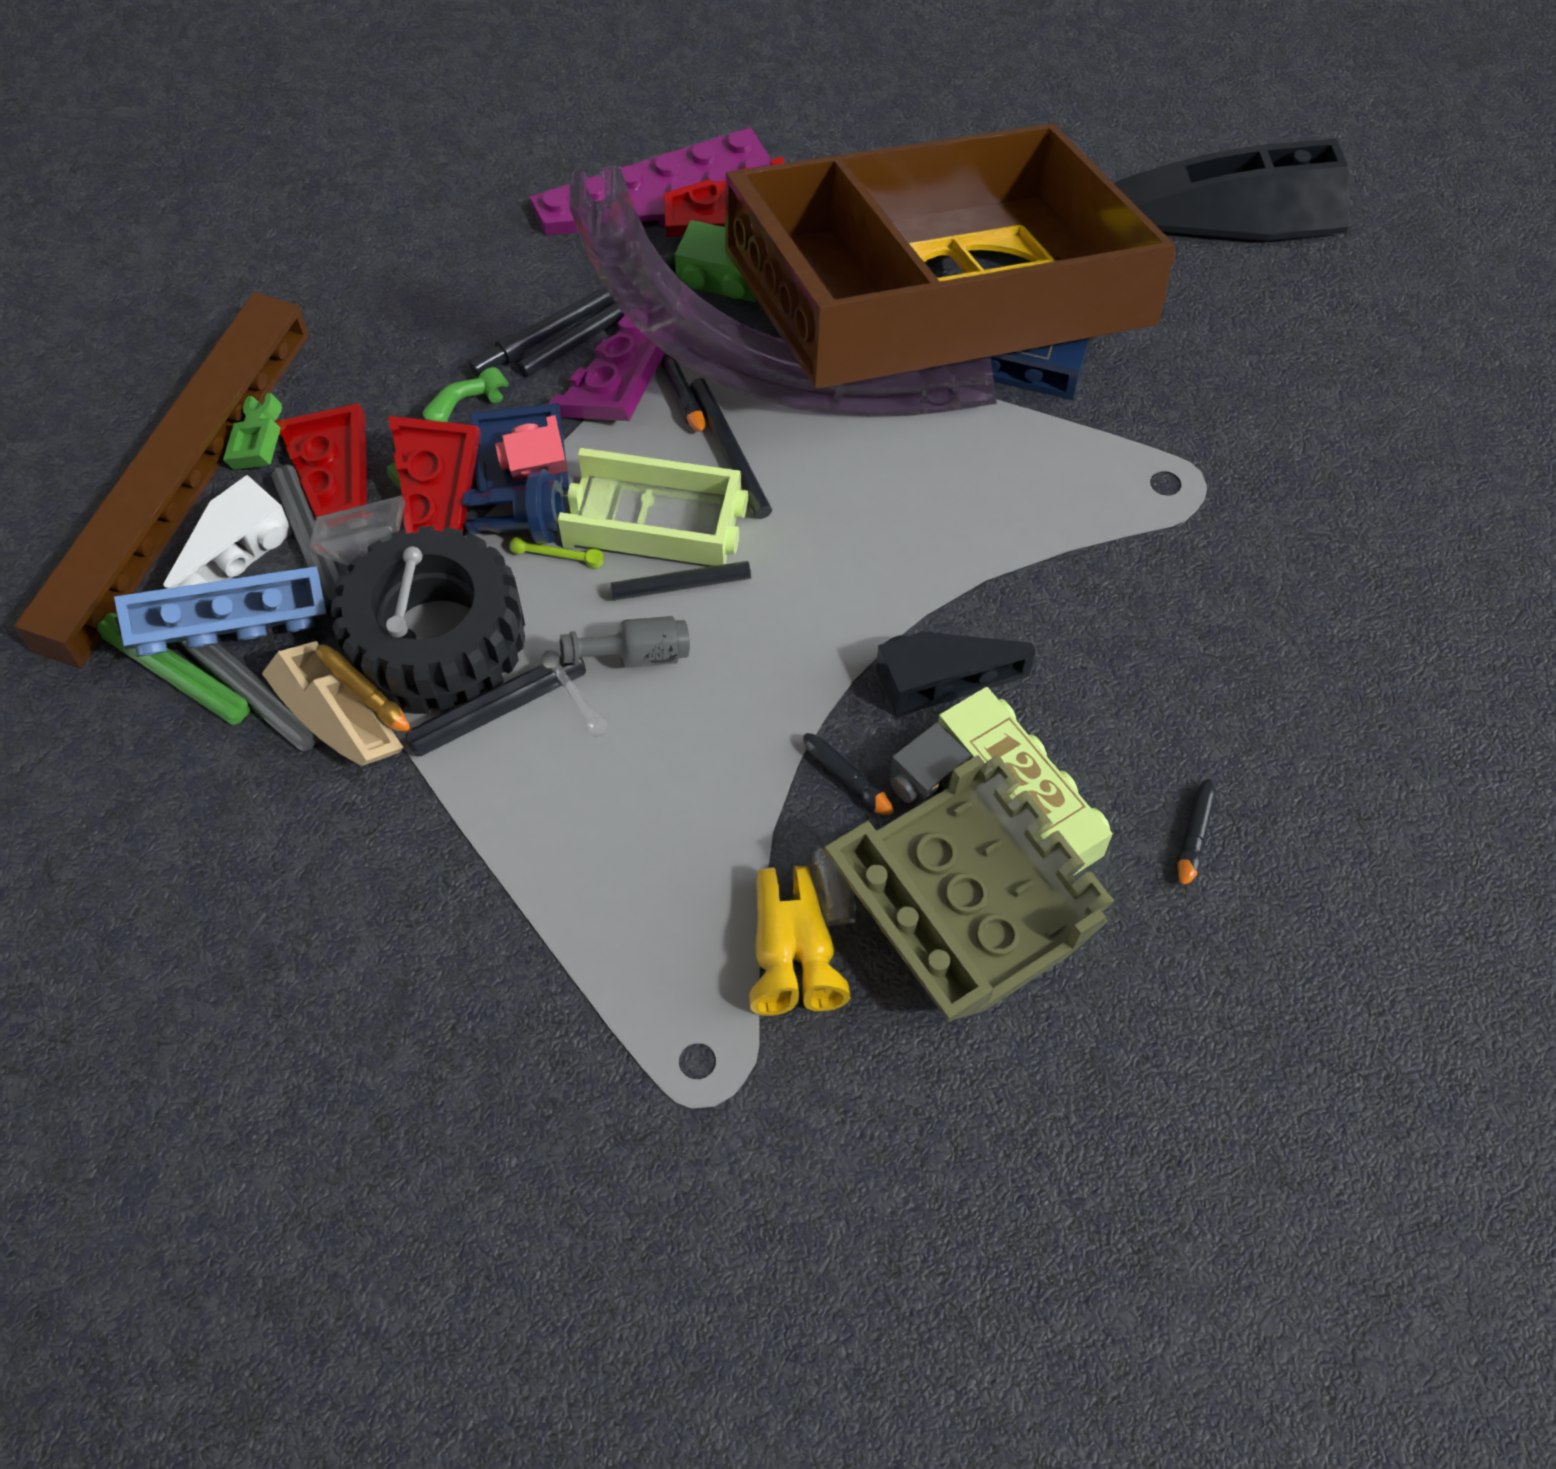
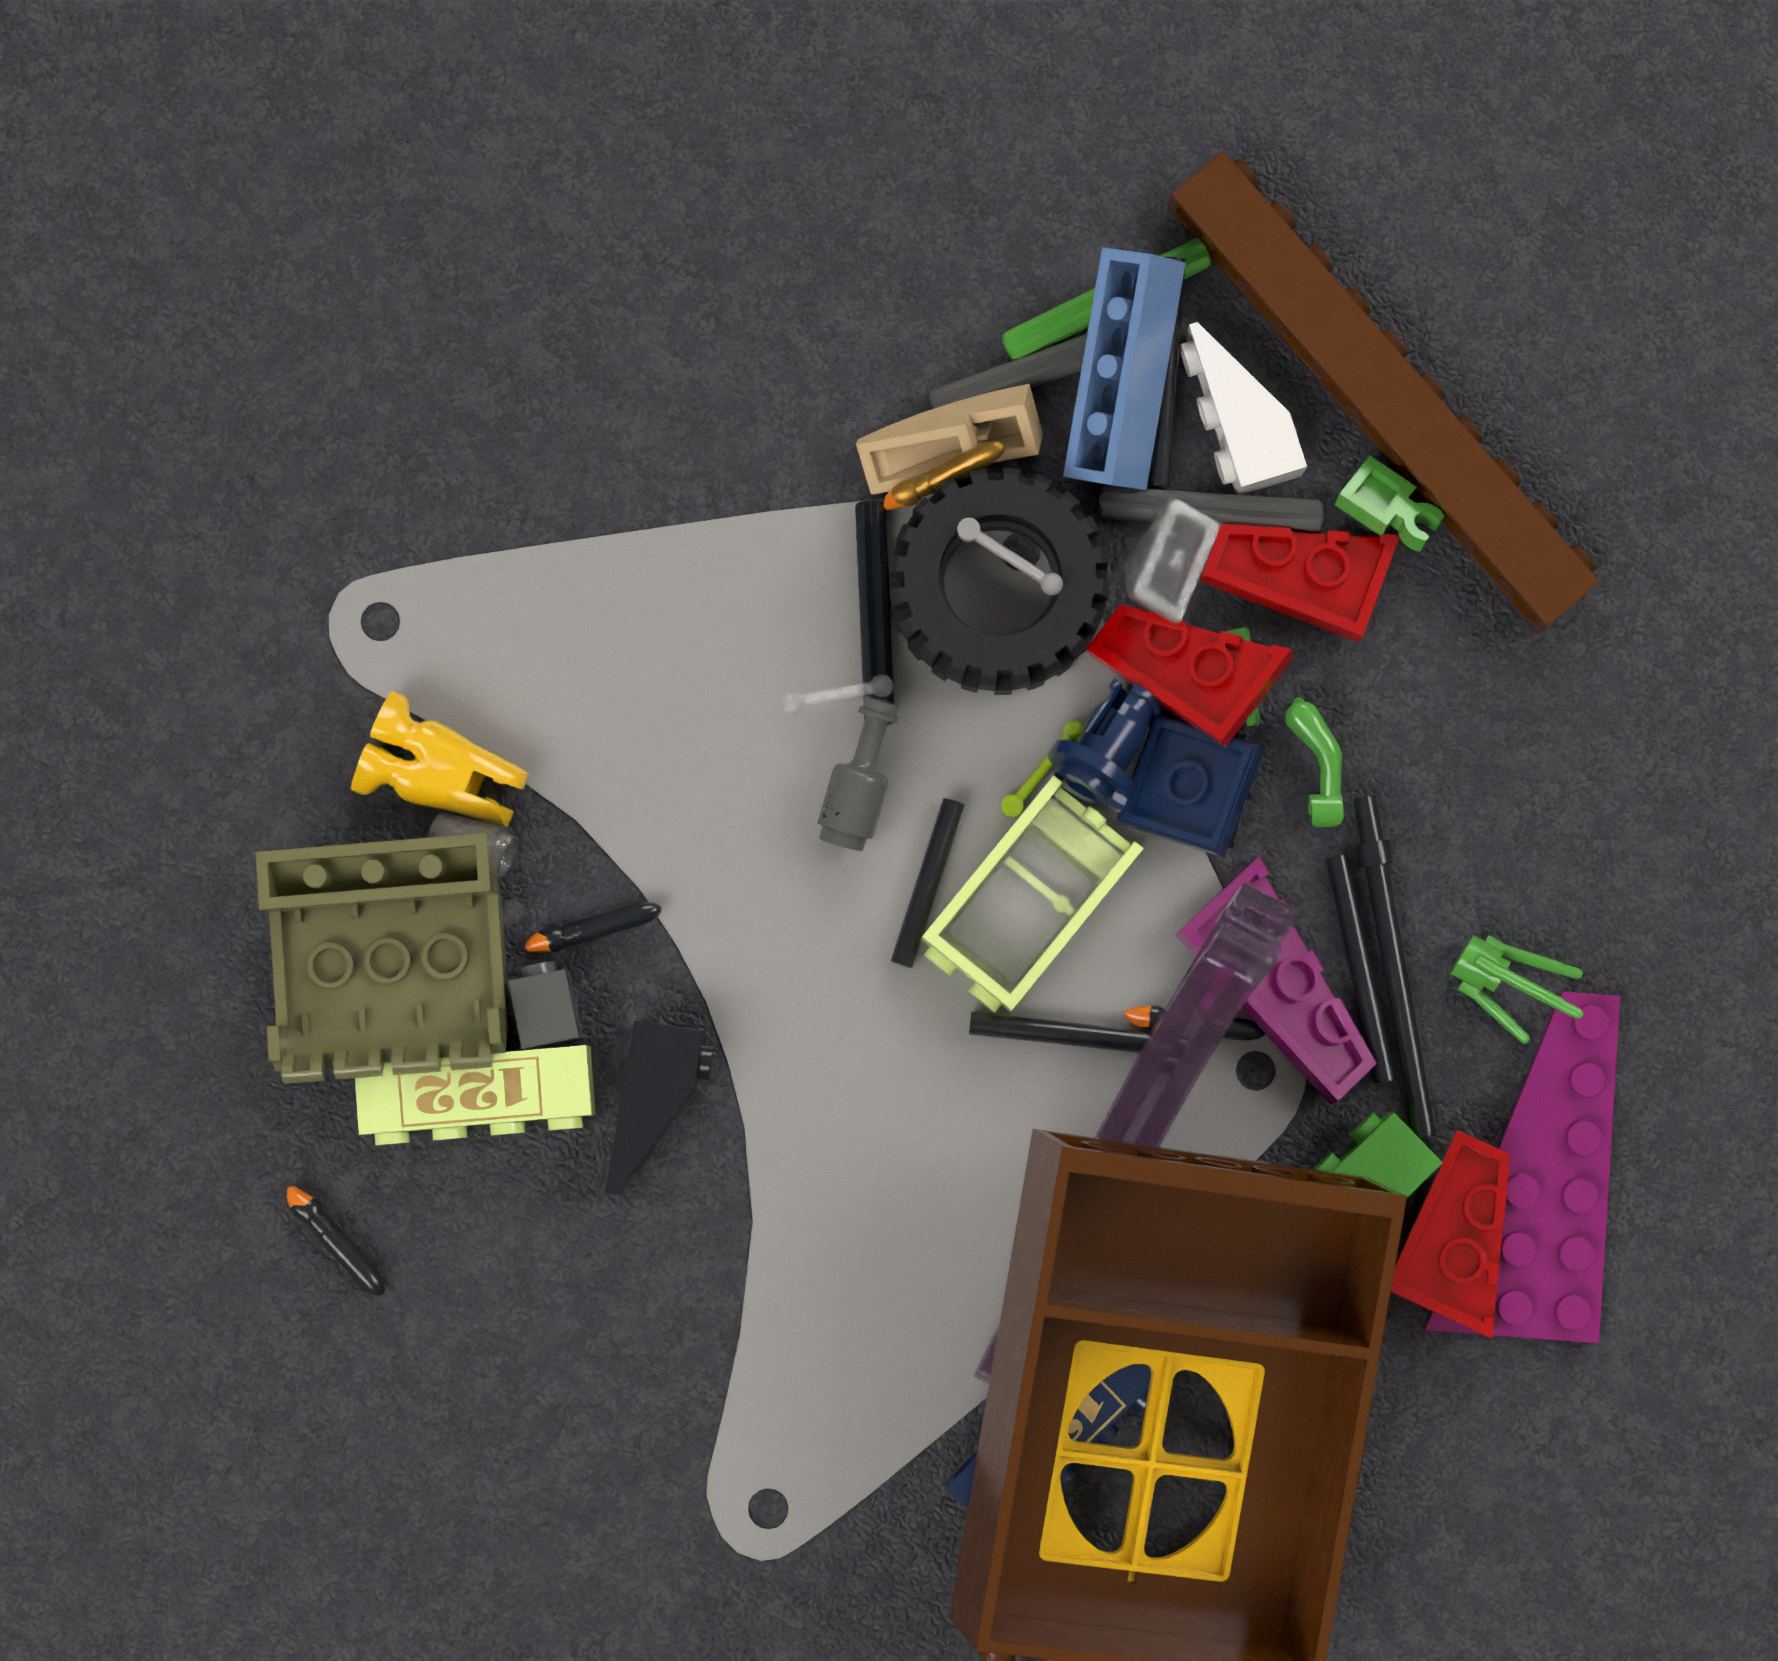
camera: 120 degrees right, 25 degrees up
(532, 449) = (1158, 790): coral brick -> none
(550, 264) = (1483, 966): none -> bright green plant

